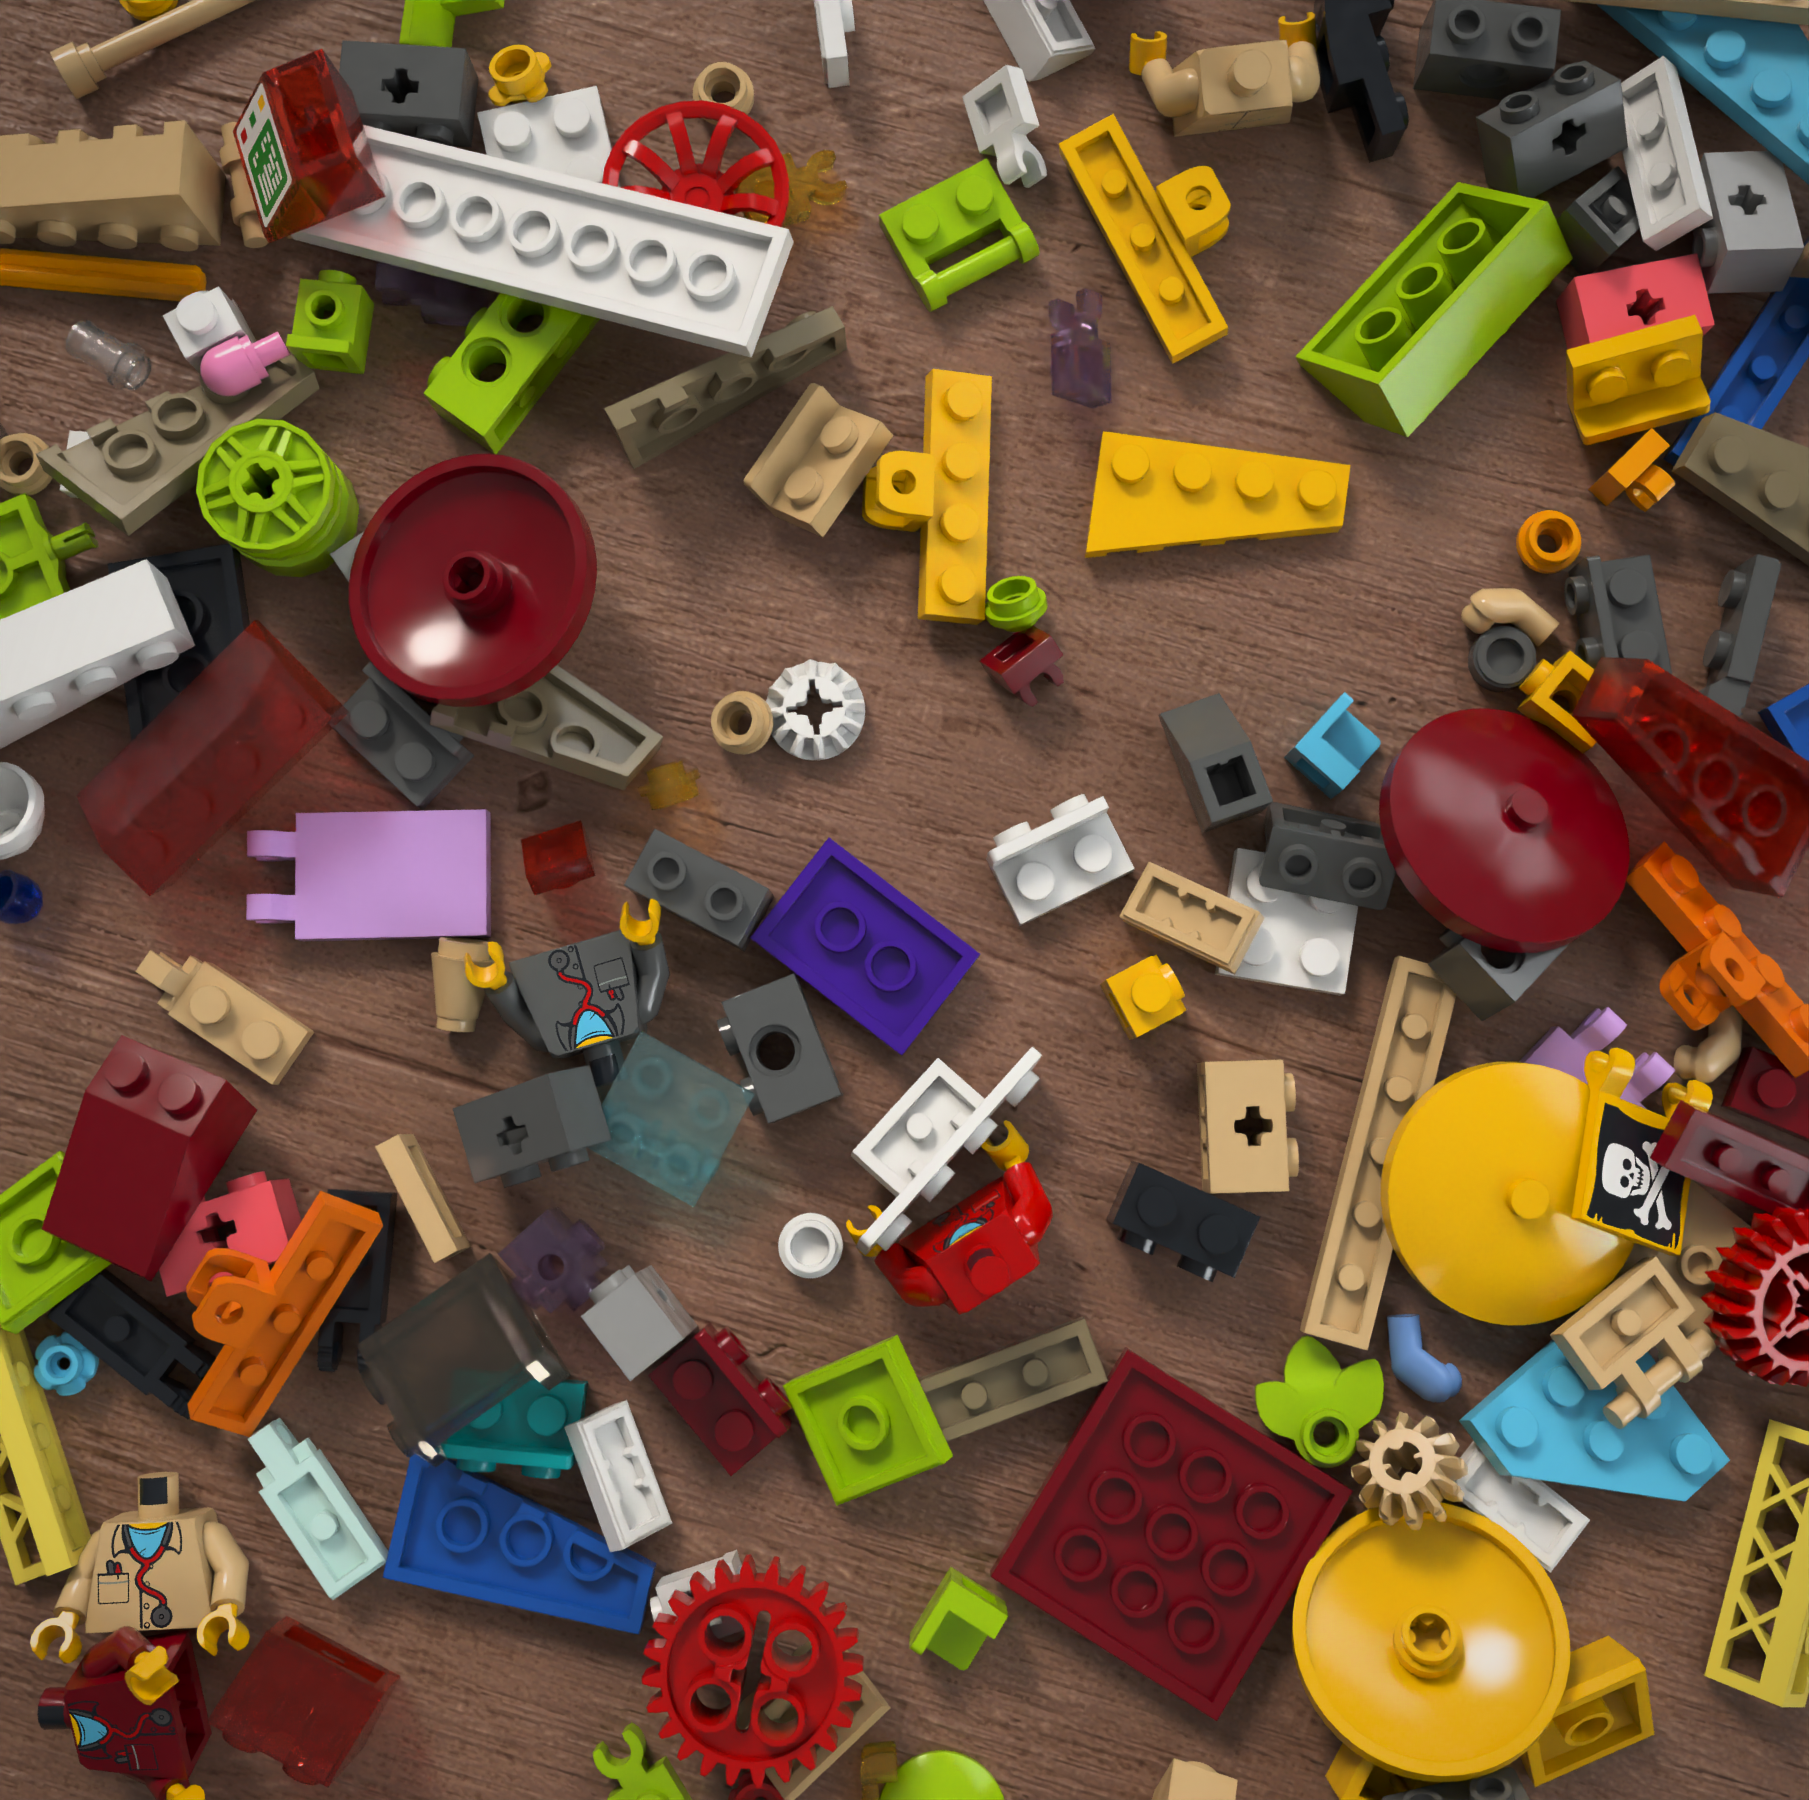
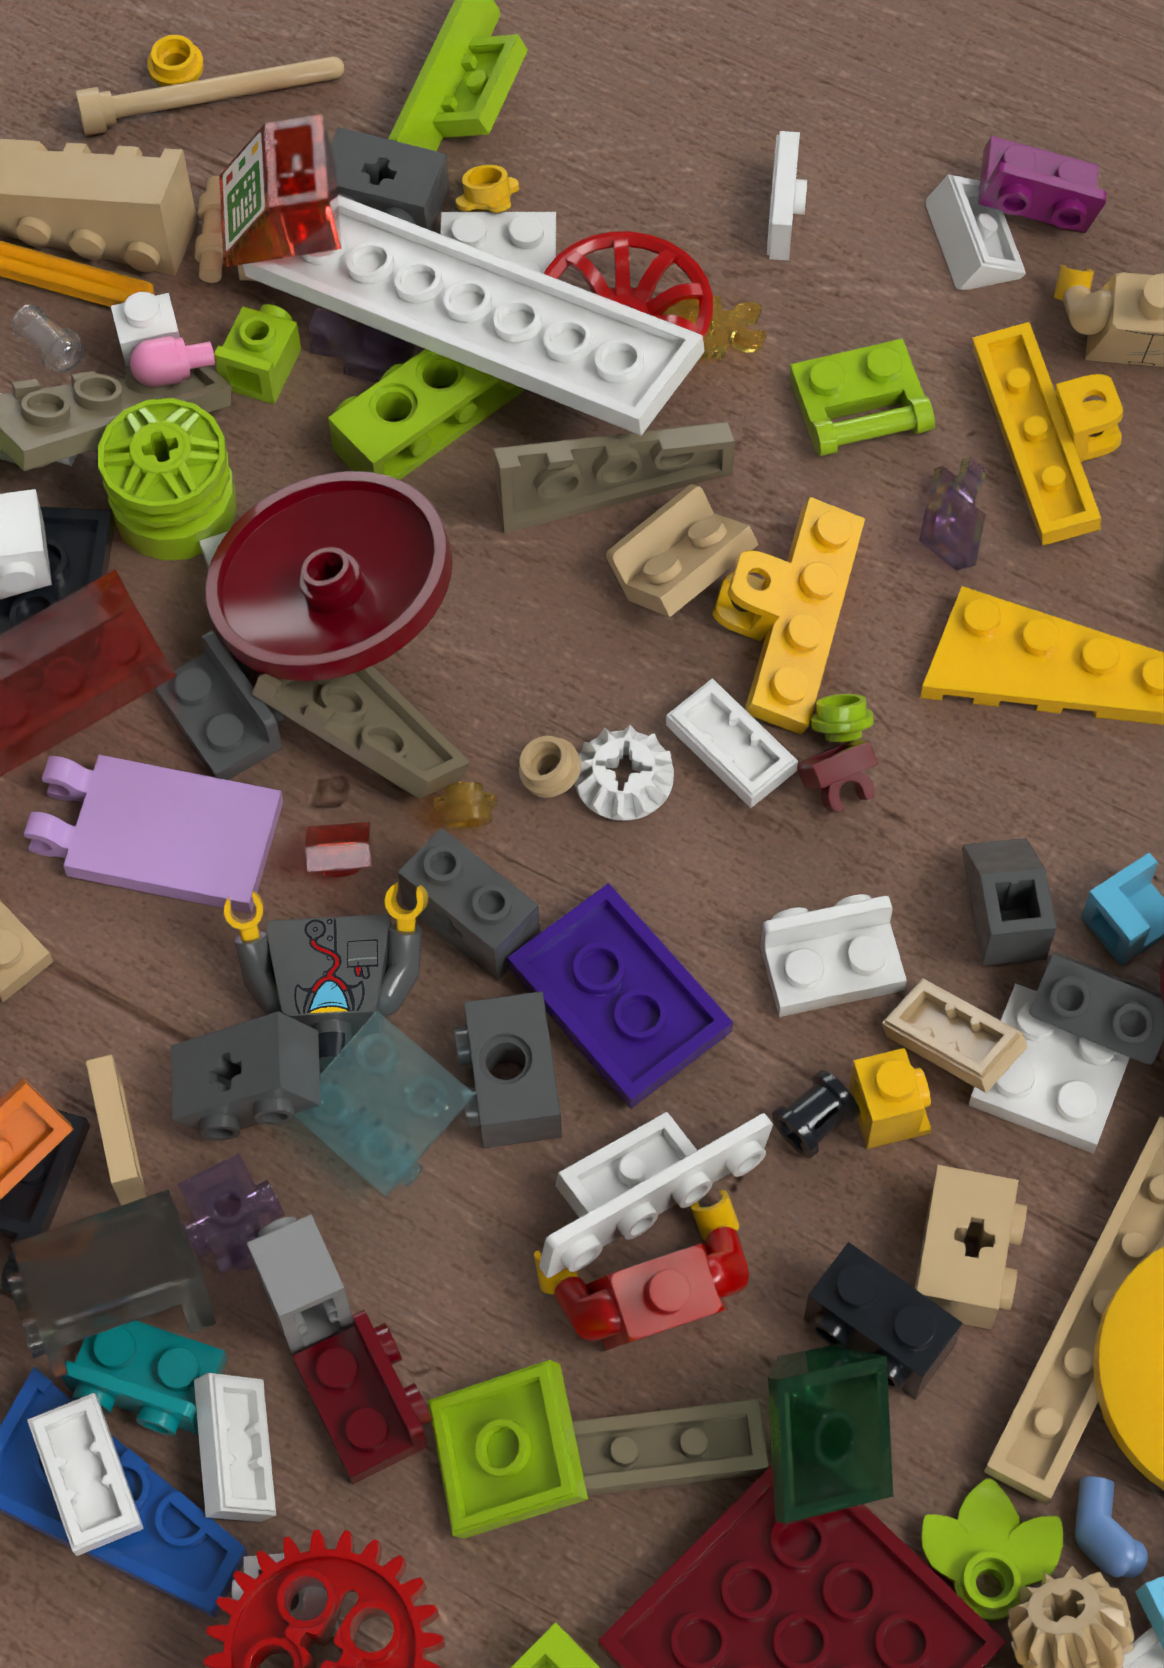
camera: 10 degrees right, 20 degrees down
(456, 998) = (209, 941): tan cone -> none
(489, 1546) = (85, 1474): none -> white plate
(725, 77) = (676, 230): tan plate -> none
(810, 1245) = (492, 1269): white plate -> none
(913, 655) = (731, 743): none -> white plate
(1001, 119) = (921, 309): white plate -> none
(1077, 1025) = (815, 1114): none -> black bush
(1156, 1345) = (829, 1431): none -> clear green slope

